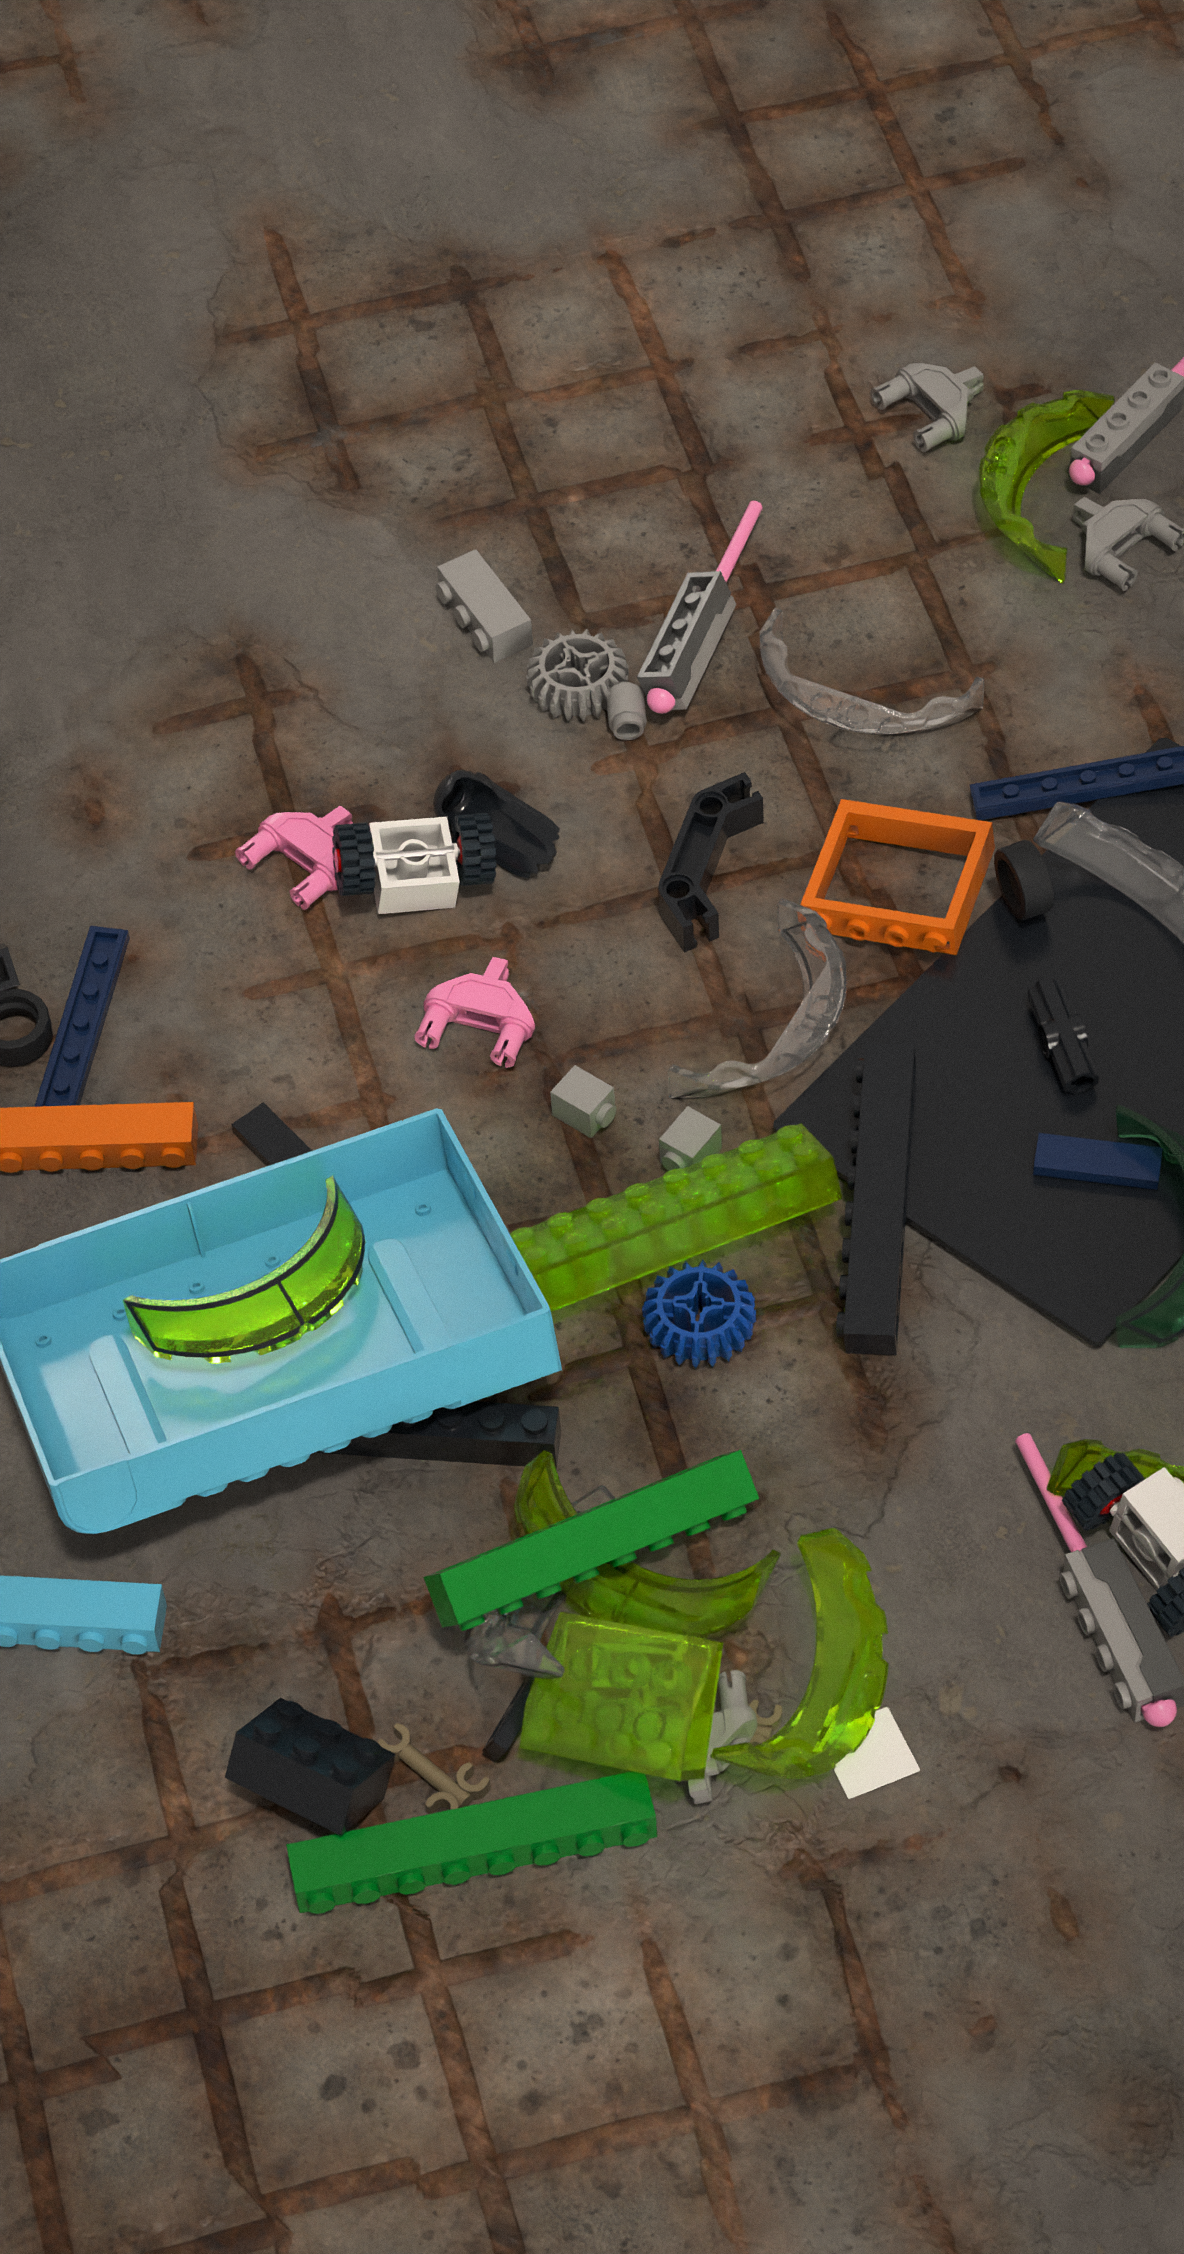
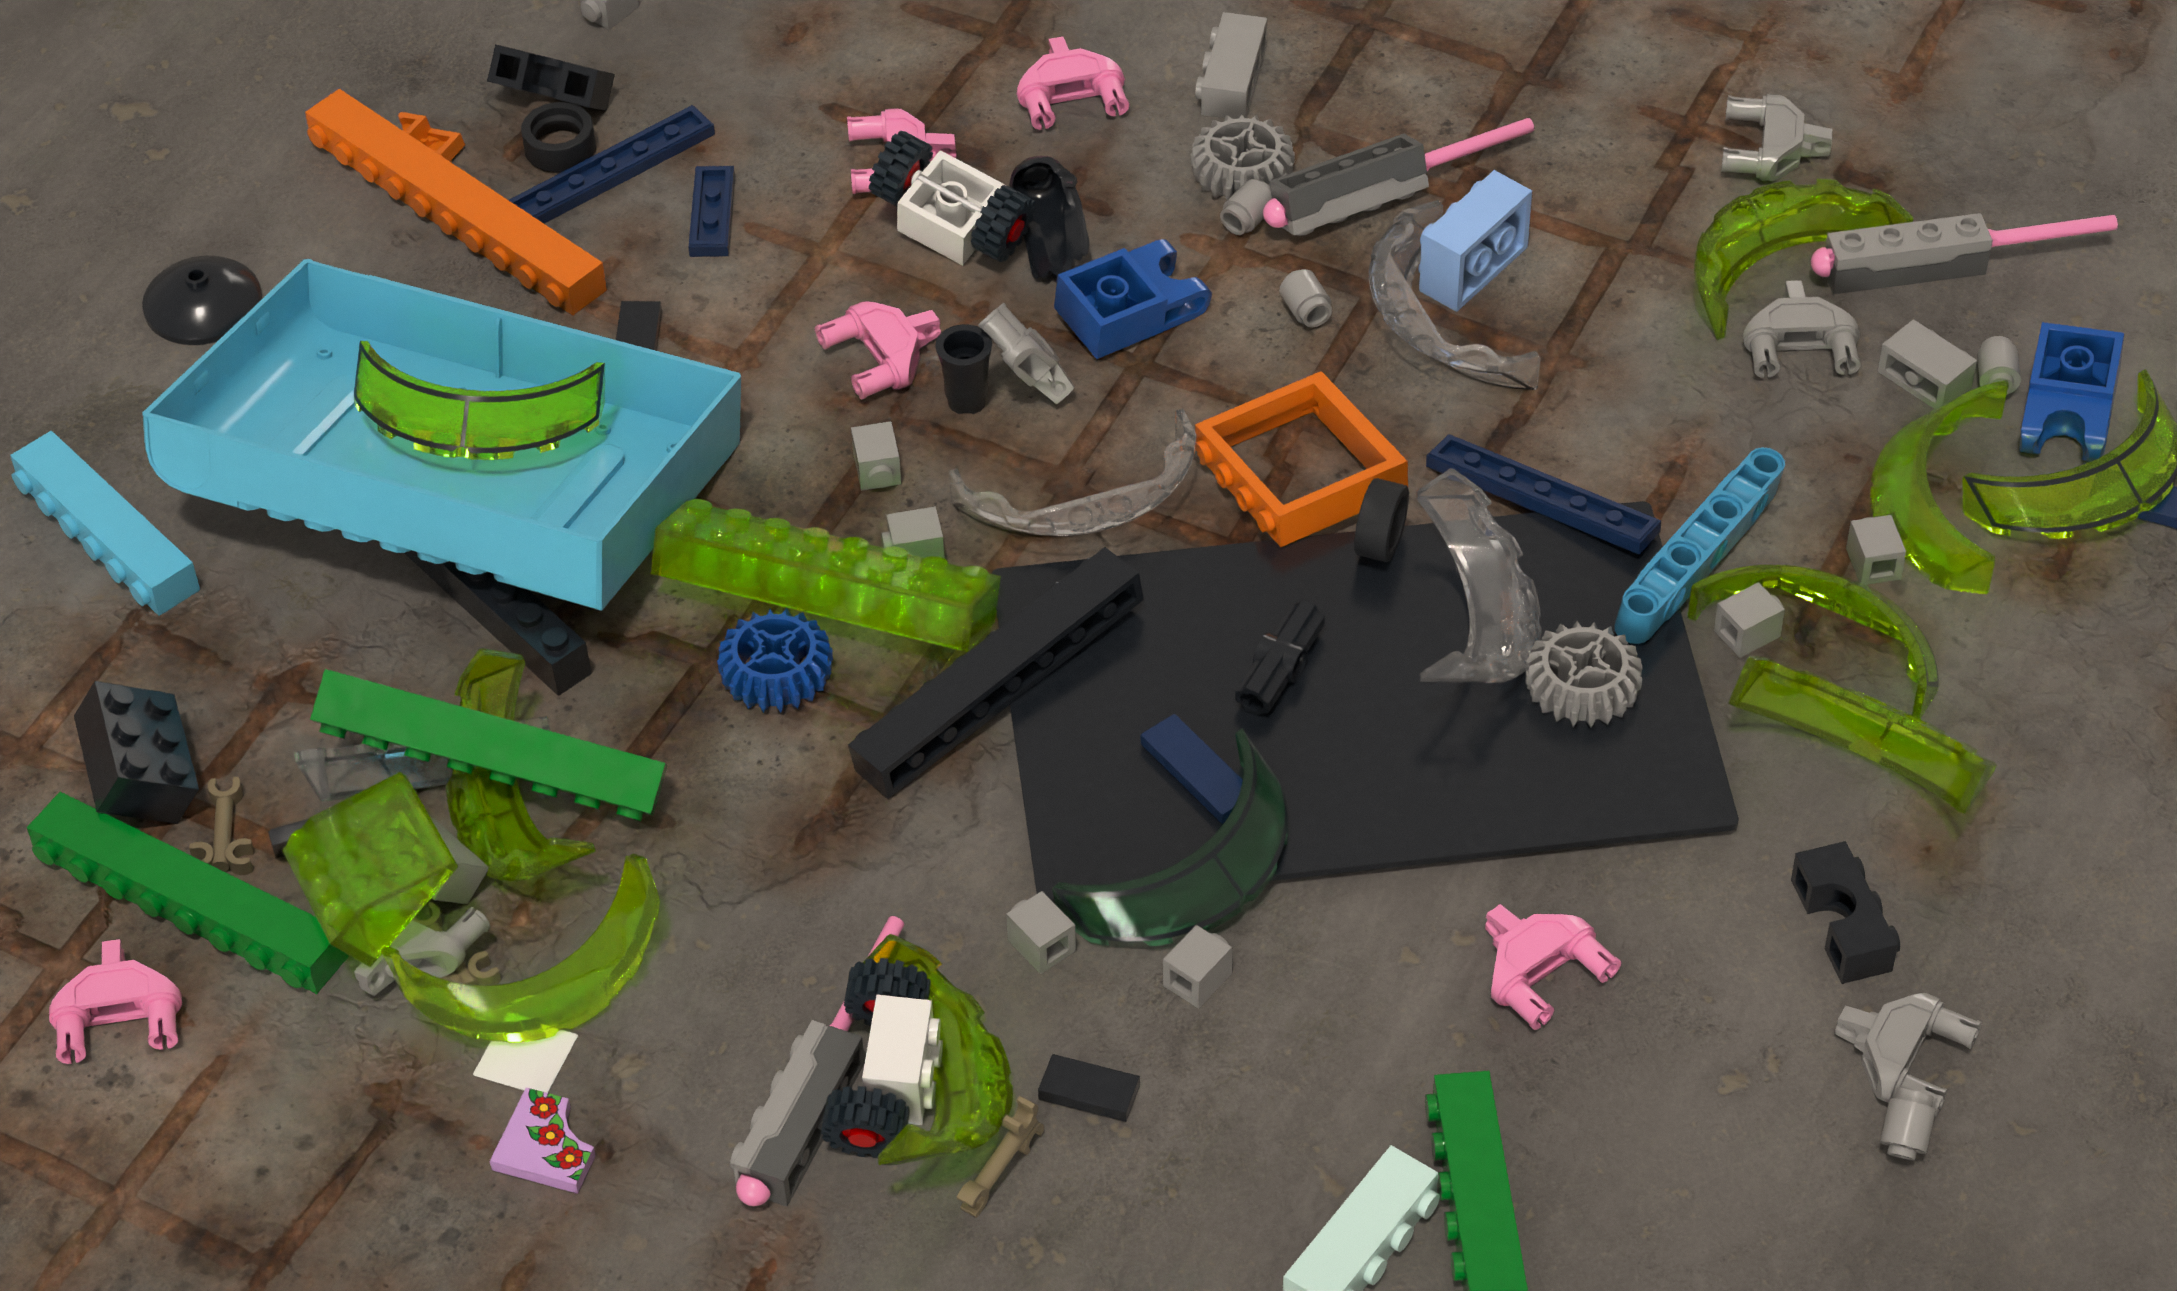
camera: 40 degrees right, 5 degrees down
(208, 1001) = (711, 211): none -> dark blue tile
(369, 697) = (1067, 77): none -> bright pink connector
(516, 1958) = (113, 994): none -> bright pink connector
(584, 974) = (964, 362): none -> black plant
(608, 938) = (1027, 354): none -> light grey connector
(626, 845) = (1128, 297): none -> blue brick
(709, 822) = (1175, 342): black piece -> none
(752, 751) = (1306, 298): none -> light grey brick
(832, 620) = (1474, 240): none -> light blue brick
(965, 1806) = (541, 1145): none -> lavender tile
(1129, 1365) = (1041, 932): none -> light grey brick

